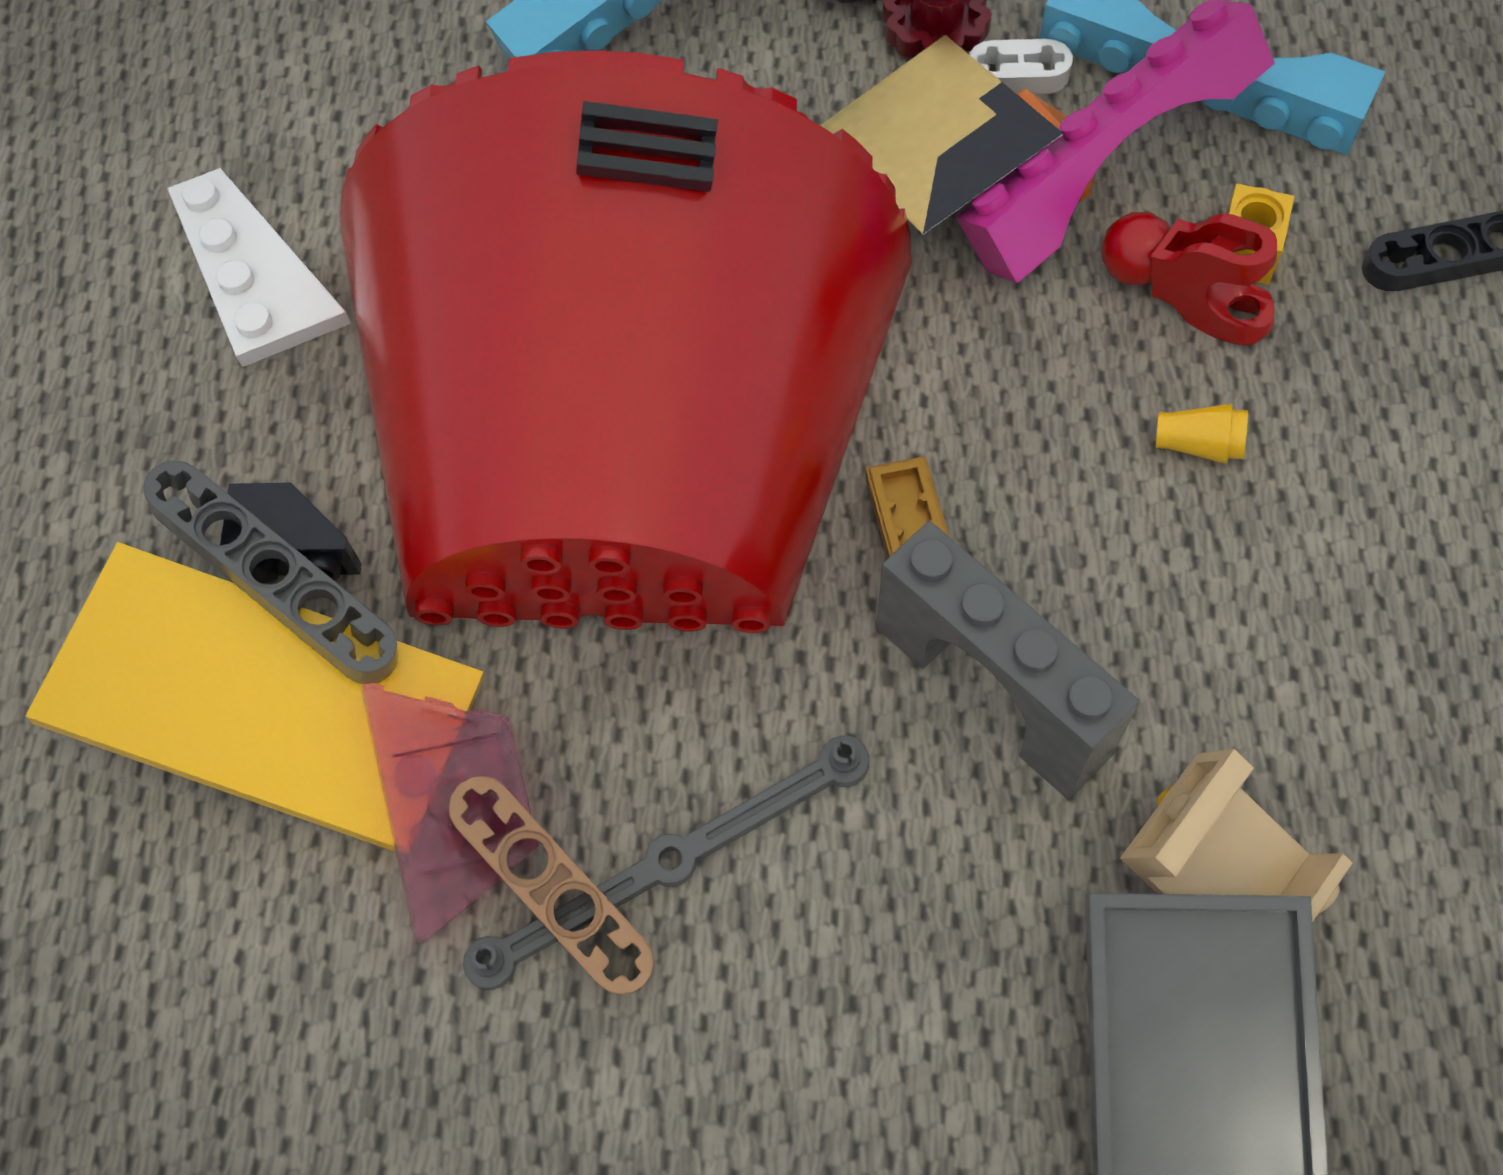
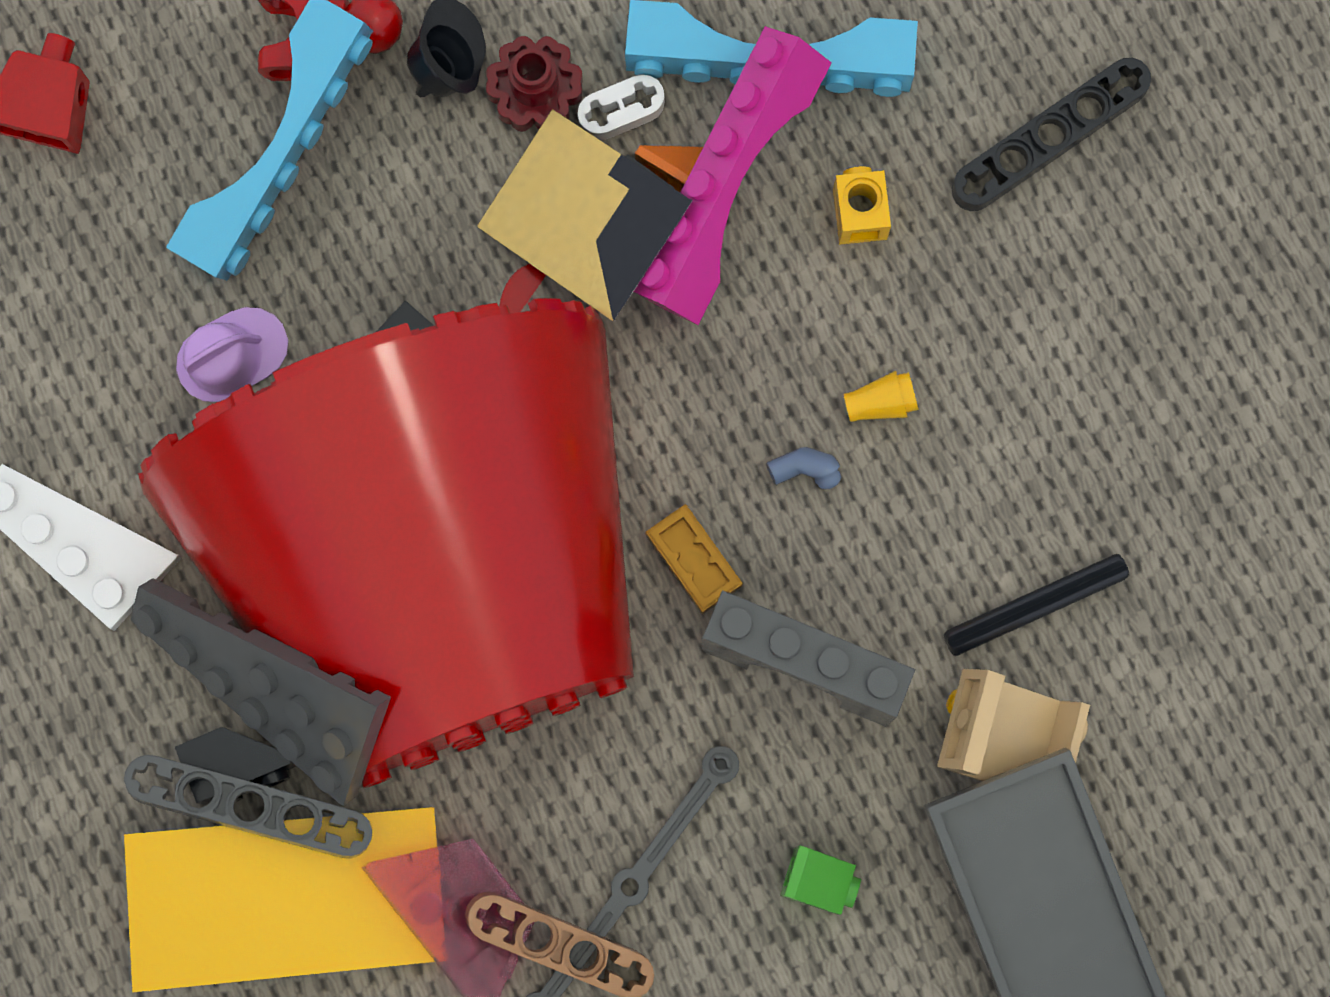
camera: 25 degrees left, 15 degrees up
(369, 459) = (275, 689): none -> dark grey wing
(643, 171) = (456, 395): black tile -> none
(909, 937) = (820, 881): none -> bright green slope
(1086, 467) = (807, 462): none -> sand blue arm
(1198, 269) = (827, 264): red piece -> none
(1317, 727) = (1036, 604): none -> black axle

